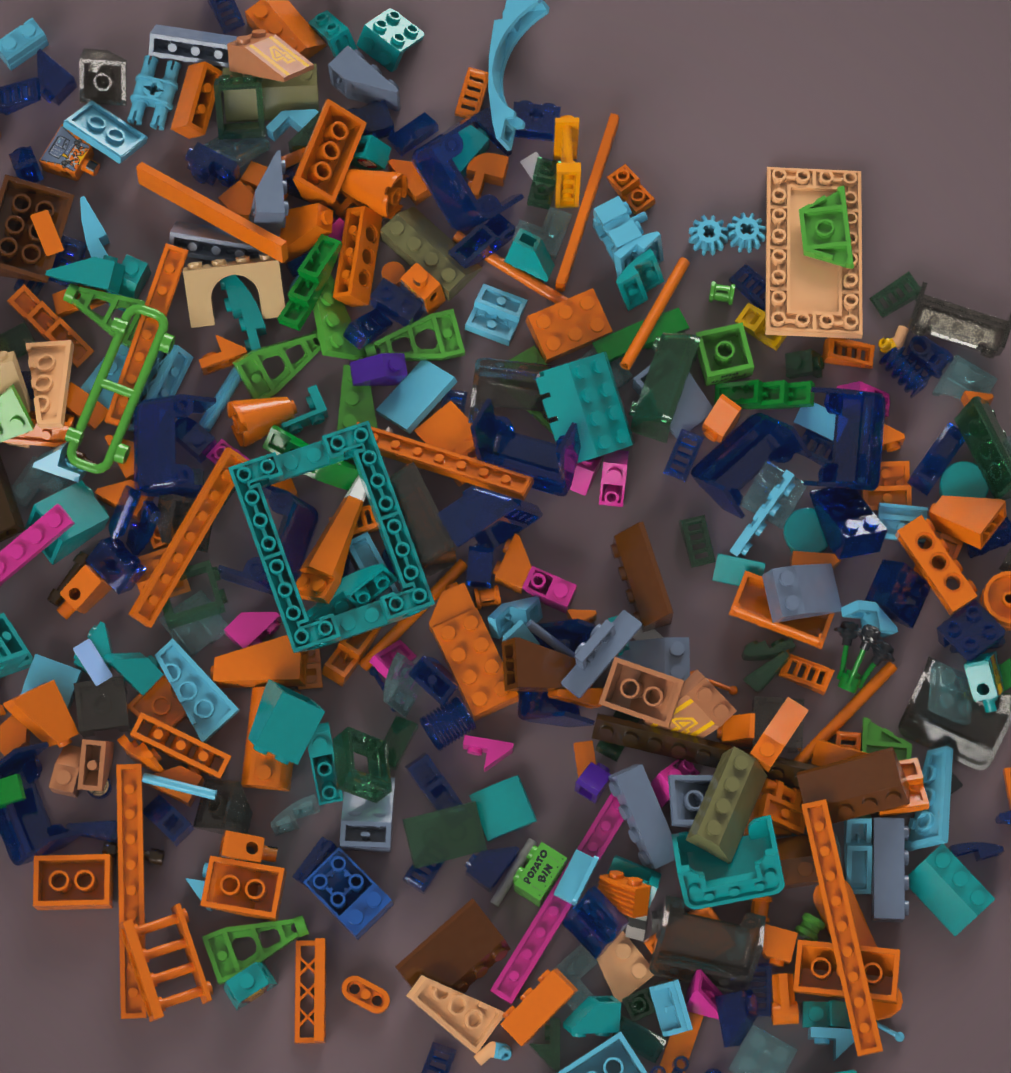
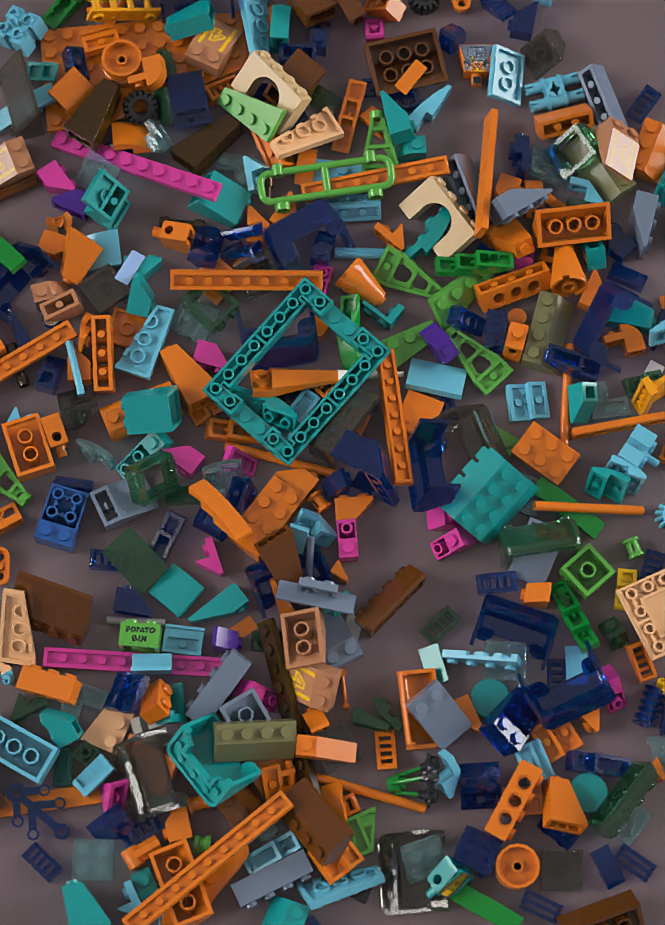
camera: 60 degrees right, 0 degrees up
(358, 715) = (187, 460): none -> dark pink slope
(444, 705) = (221, 510): none -> orange slope
(549, 758) = (224, 605): none -> teal slope
(565, 828) = (183, 640): none -> medium azure plate

